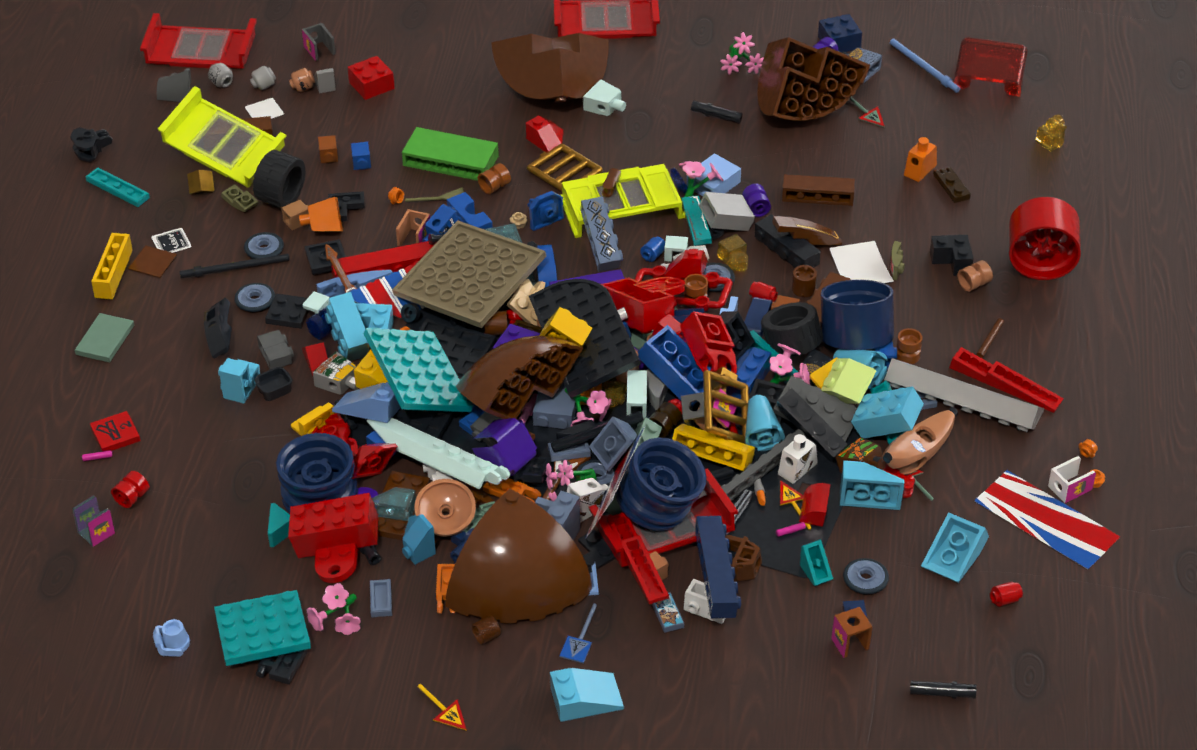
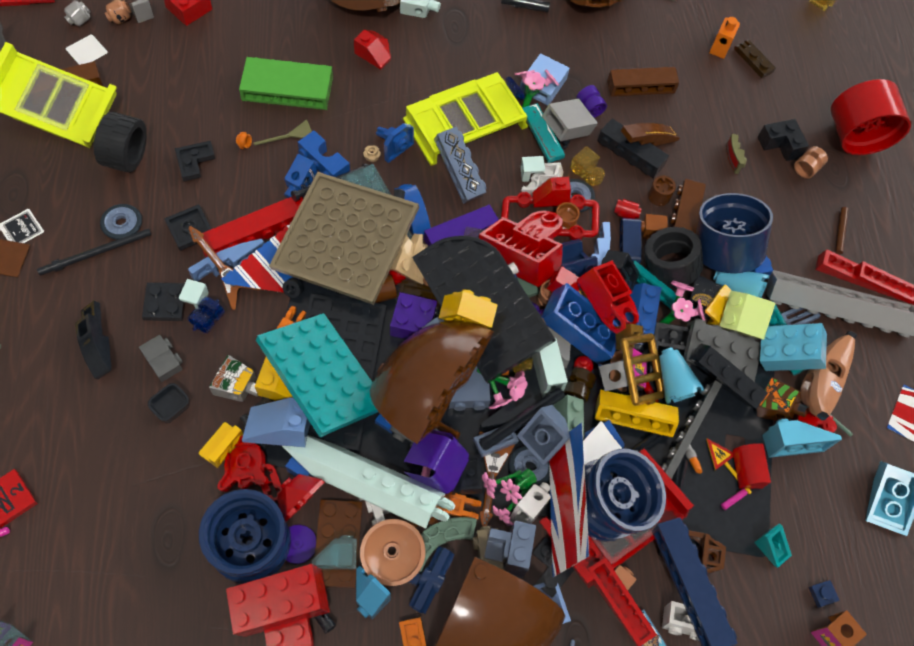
camera: 20 degrees left, 20 degrees up
(129, 489) = (39, 582): red wheel -> none
(200, 181) = (37, 150): pearl gold panel -> none
(220, 75) = (32, 15): light grey head -> none
(237, 198) = (82, 165): olive slope -> none
(238, 379) = (130, 406): medium azure brick -> none
(244, 294) = (124, 300): sand blue wheel -> none
(278, 525) = (215, 602): teal slope -> none
(291, 214) = (147, 178): medium nougat brick -> none
(315, 355) = (206, 359): red slope -> none
(323, 216) = (176, 180): orange torso -> none
(328, 149) = (162, 92): dark orange brick -> none
(347, 326) = (233, 326): medium azure brick -> none
(361, 155) = (197, 96): blue brick -> none
(376, 315) = (258, 302): medium azure brick -> none
(408, 223) = (266, 172): nougat piece -> none
(494, 178) = (337, 108): dark orange wheel -> none
(557, 183) = (397, 103): pearl gold bar -> none
(611, 182) = (455, 103): reddish brown bar -> none
(653, 249) = (510, 171): blue brick -> none
(797, 459) = (723, 410): white torso -> none
(854, 570) = (834, 545): sand blue wheel -> none
(861, 262) = (702, 160): white sticker -> none
(909, 345) = (781, 254): dark orange wheel -> none

